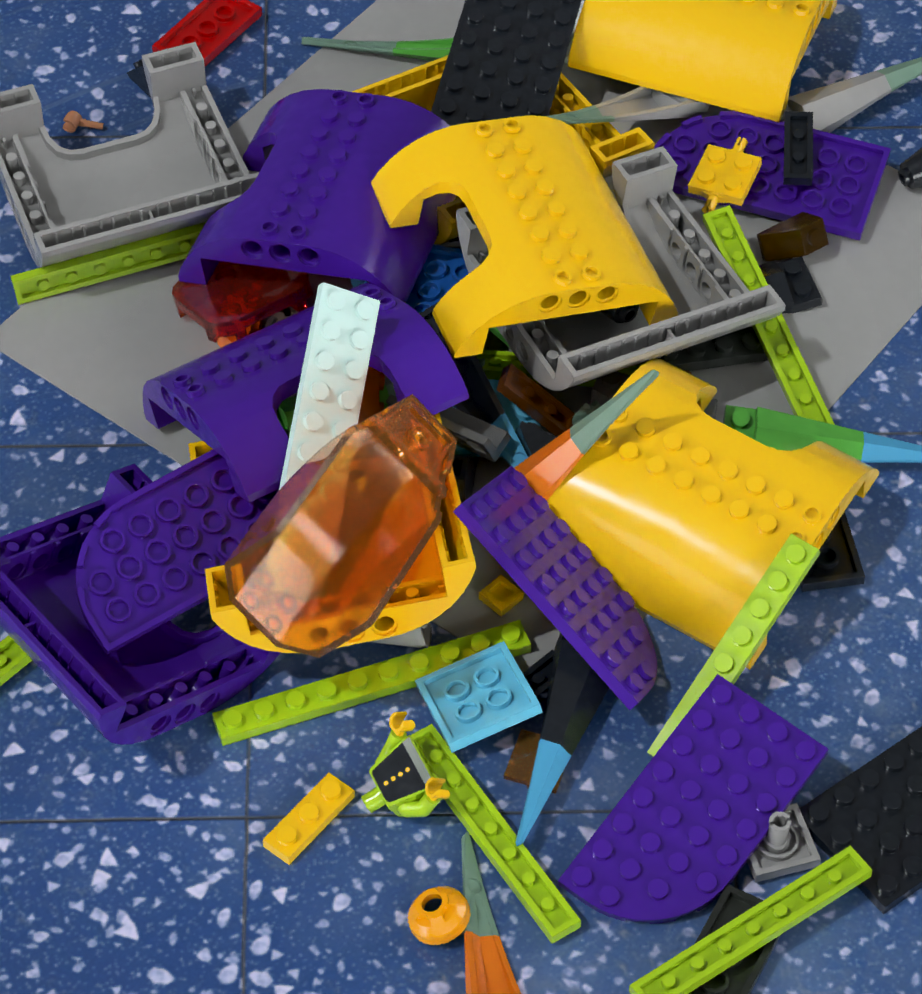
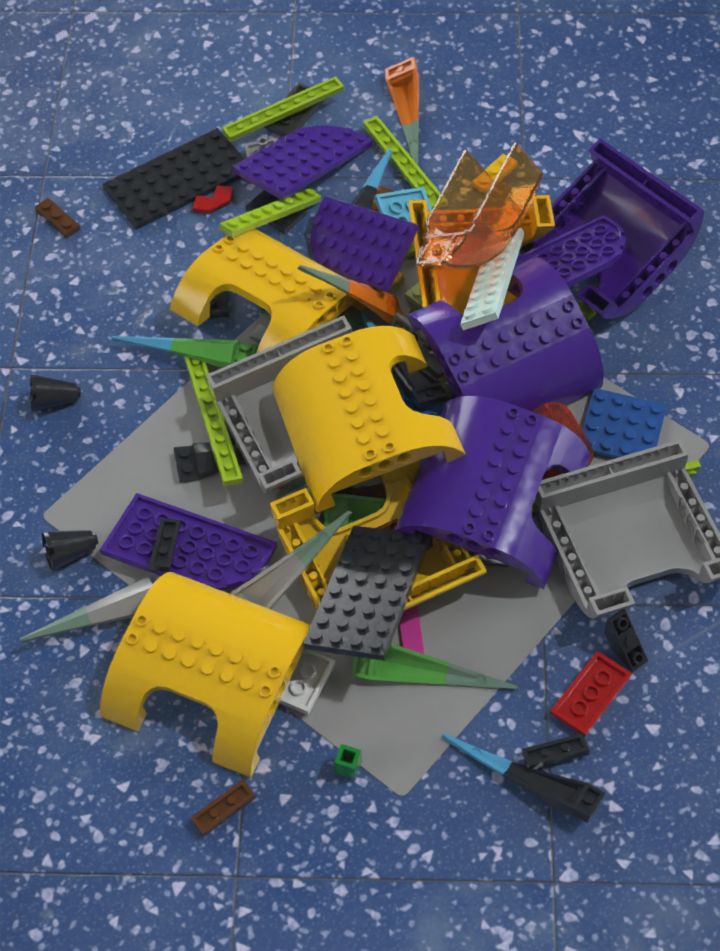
camera: 175 degrees left, 5 degrees up
(74, 119) = (681, 612): nougat hand -> none
(116, 350) = (622, 423): none -> blue plate
(404, 775) = (437, 171): torso -> none
(445, 922) = (427, 130): light orange piece -> none
(724, 175) = (219, 532): yellow plate -> none
(793, 237) = (180, 487): dark brown slope -> none
(859, 733) = (207, 205): none -> red tile

